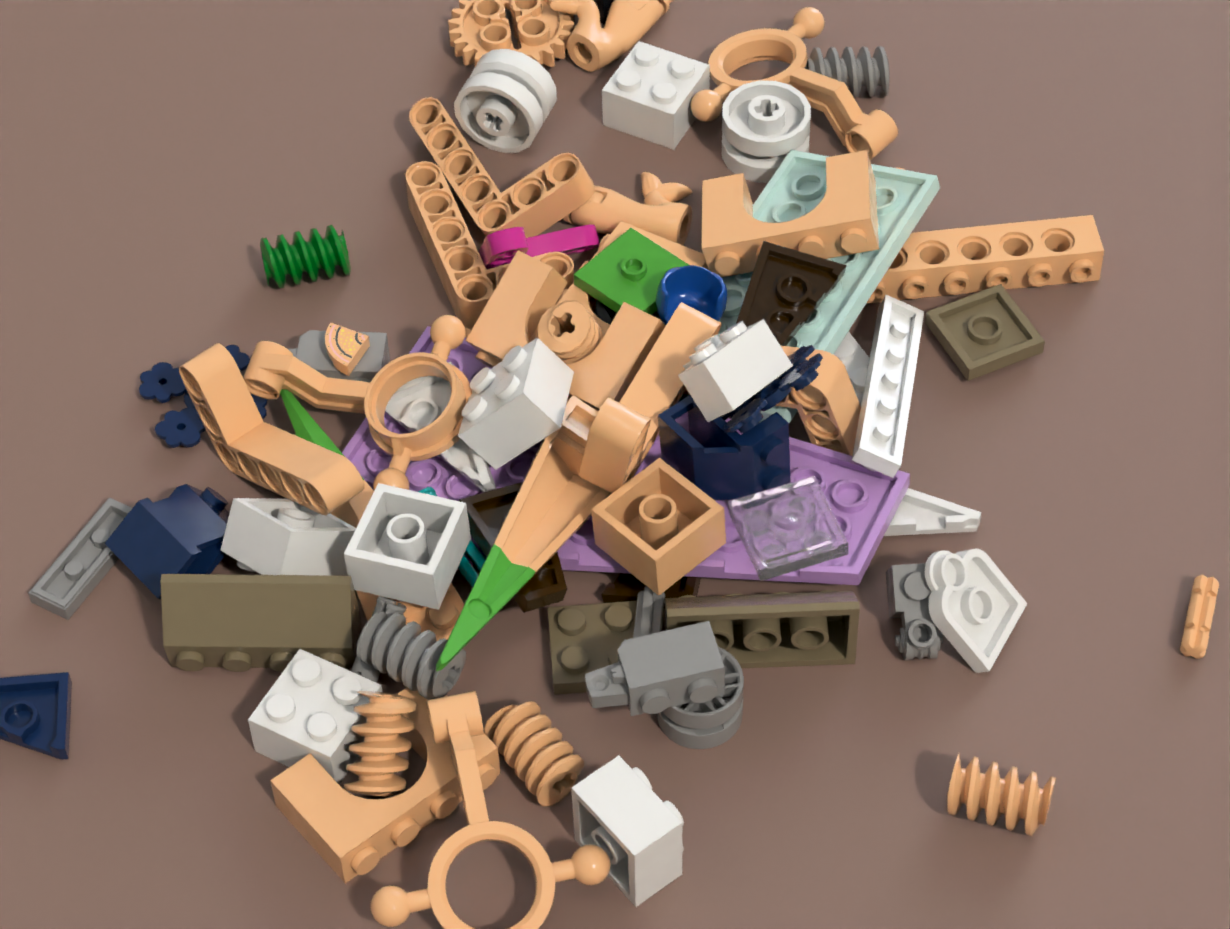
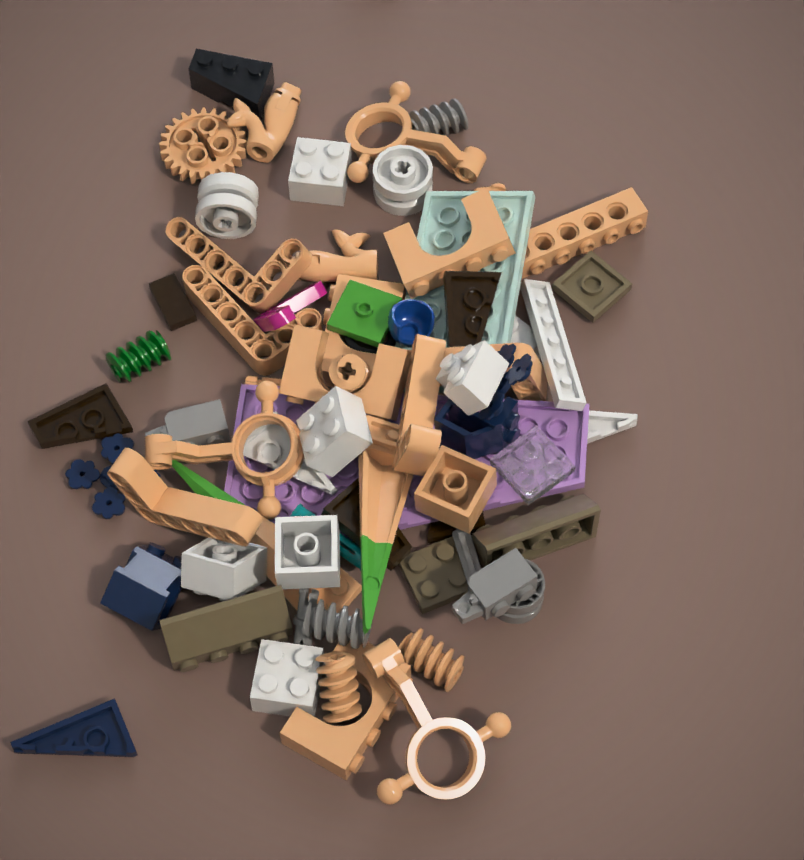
camera: 20 degrees left, 10 degrees up
(80, 564) = (86, 614): light grey tile -> none
(192, 315) = (81, 419): none -> dark brown wing
(345, 347) = (199, 418): light nougat tile -> none
(384, 206) = (172, 302): none -> dark brown tile
(633, 827) = (512, 691): white brick -> none
(909, 600) = (622, 484): light grey brick -> none
(972, 604) = (657, 480): white plate -> none
(999, 795) = (718, 598): light nougat piece -> none
(1199, 616) = (787, 444): light nougat axle -> none

